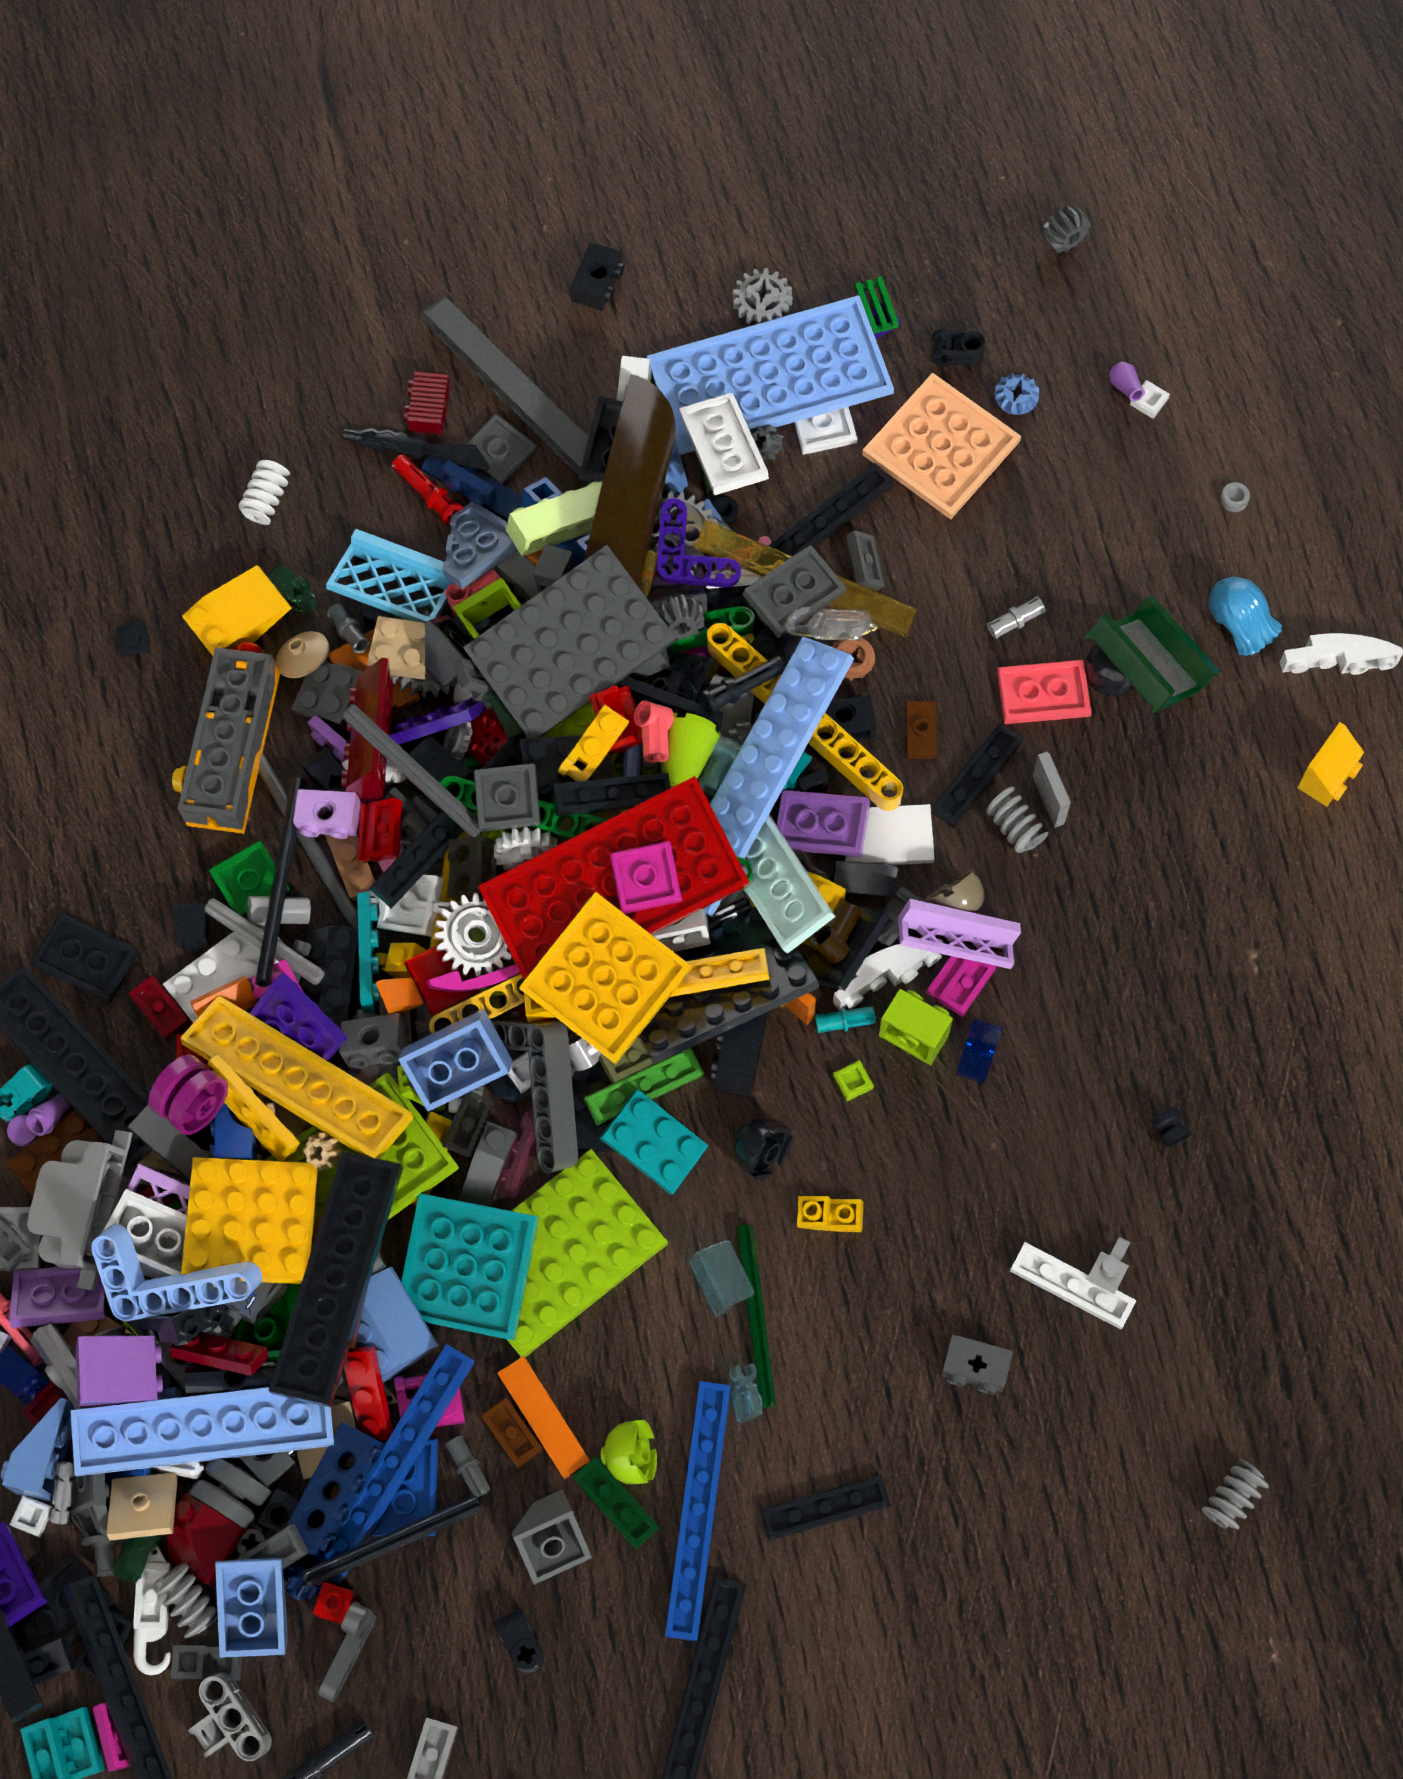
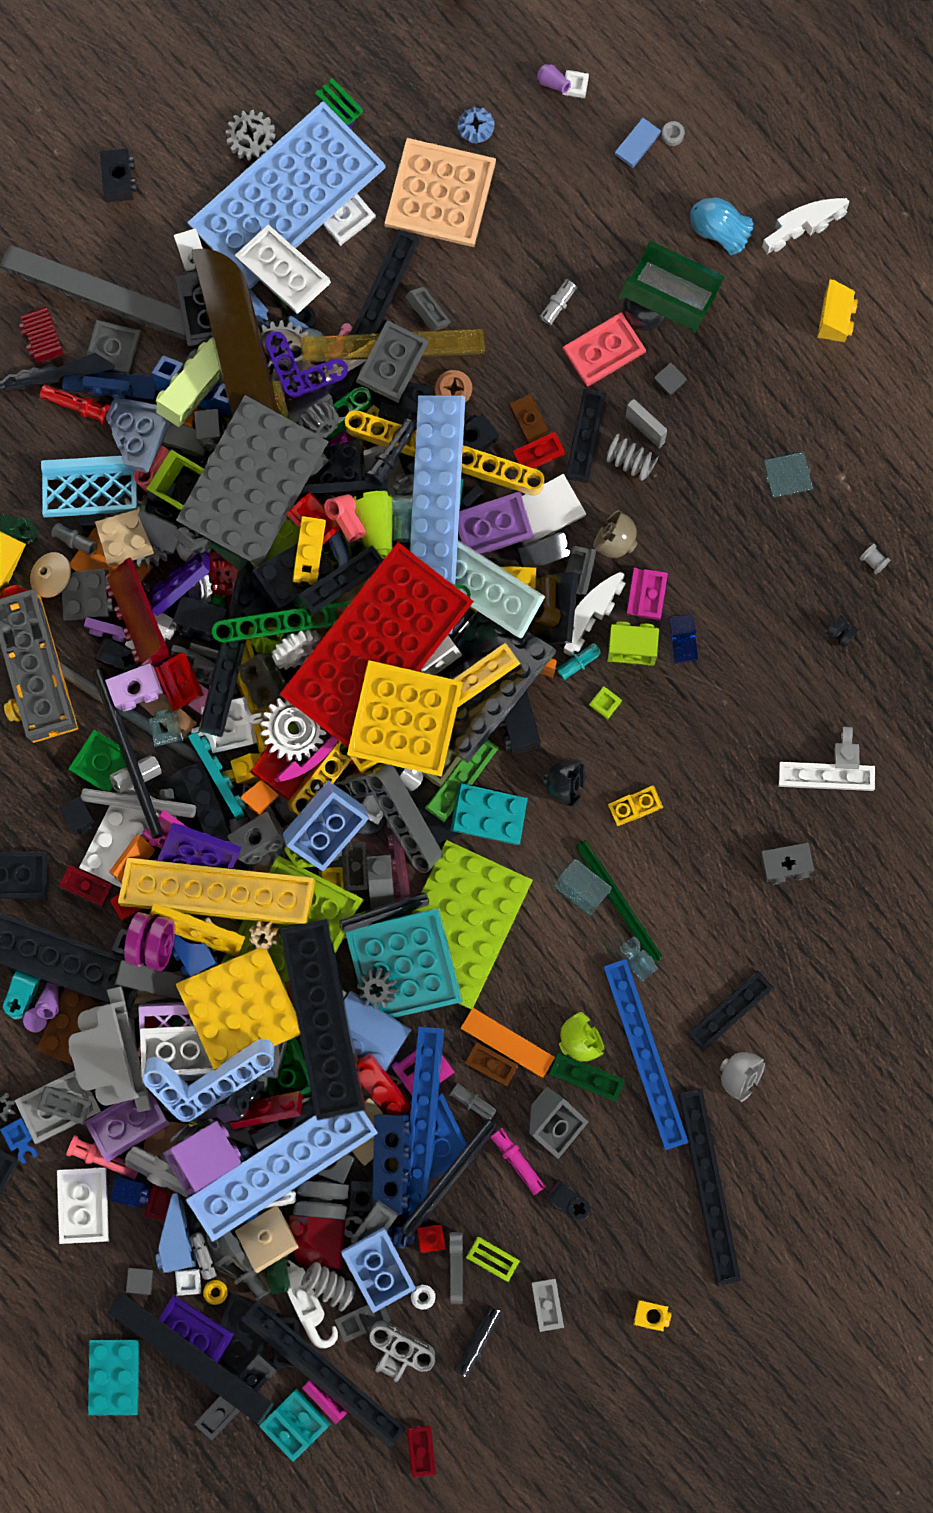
camera: 25 degrees left, 10 degrees up
(46, 1539) = (215, 1284): none -> yellow plate
(284, 1663) = (423, 1305): none -> white plate
(346, 877) = (174, 732): none -> clear light blue window
(411, 1689) = (475, 1249): none -> lime tile
(412, 770) = (191, 632): dark grey axle -> none
(422, 1288) = (379, 980): none -> dark grey gear
(474, 1193) = (384, 912): none -> black axle
(484, 1564) = (518, 1162): none -> dark pink pin
(507, 797) = (268, 619): dark grey plate -> none
(646, 877) = (398, 632): dark pink tile -> none
(768, 442) = (315, 247): dark grey gear -> none
(800, 1587) = (741, 1073): none -> light grey cylinder
(831, 624) = (431, 373): clear plate -> none
(916, 767) = (539, 451): none -> red plate
(956, 347) = (414, 110): black piece -> none
(958, 927) = (626, 558): lavender fence -> none
(1103, 757) = (670, 379): none -> dark grey tile
(1190, 489) = (637, 142): none -> medium blue tile
(1191, 923) = (788, 474): none -> clear light blue piece
(1248, 1062) = (874, 559): none -> light grey bush

